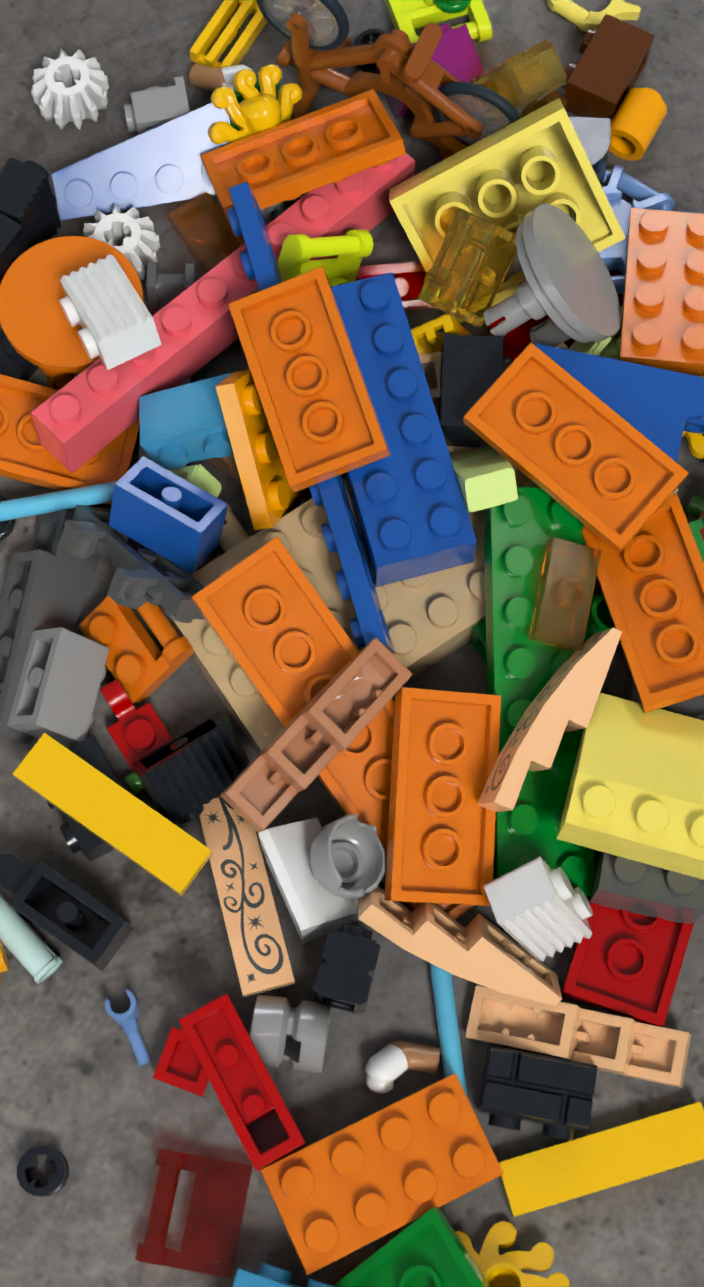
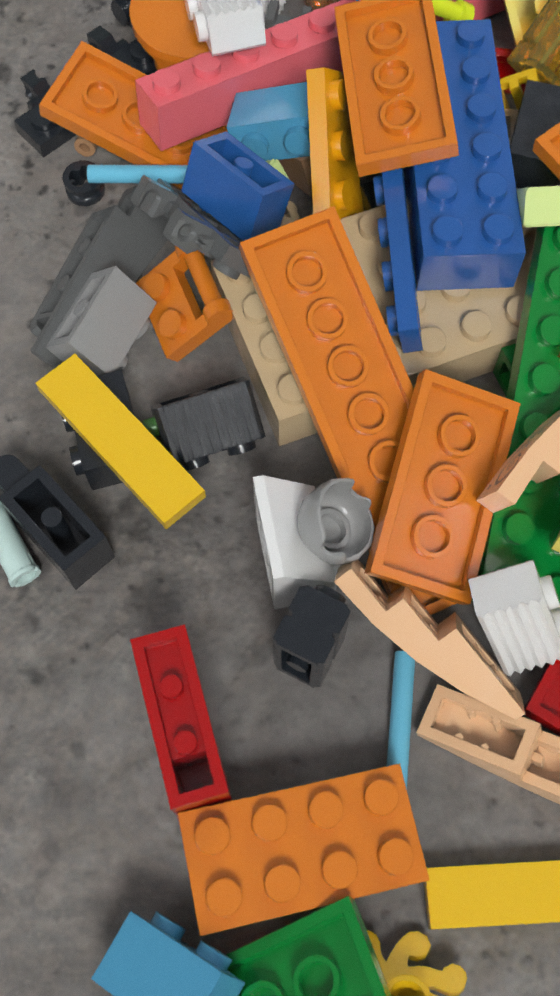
camera: 15 degrees right, 5 degrees down
(130, 1026) = (88, 641): medium blue hand -> none
(137, 730) = (162, 379): red plate -> none
(180, 1065) = (124, 694): red plate -> none
(212, 1218) = (120, 854): clear red plate -> none
(245, 900) = (228, 549): light nougat slope -> none
(291, 1032) = (261, 681): light grey wheel -> none
(316, 735) = (330, 397): nougat slope -> none
(395, 1060) = (341, 738): arm -> none
(537, 1091) = (482, 804): black brick -> none

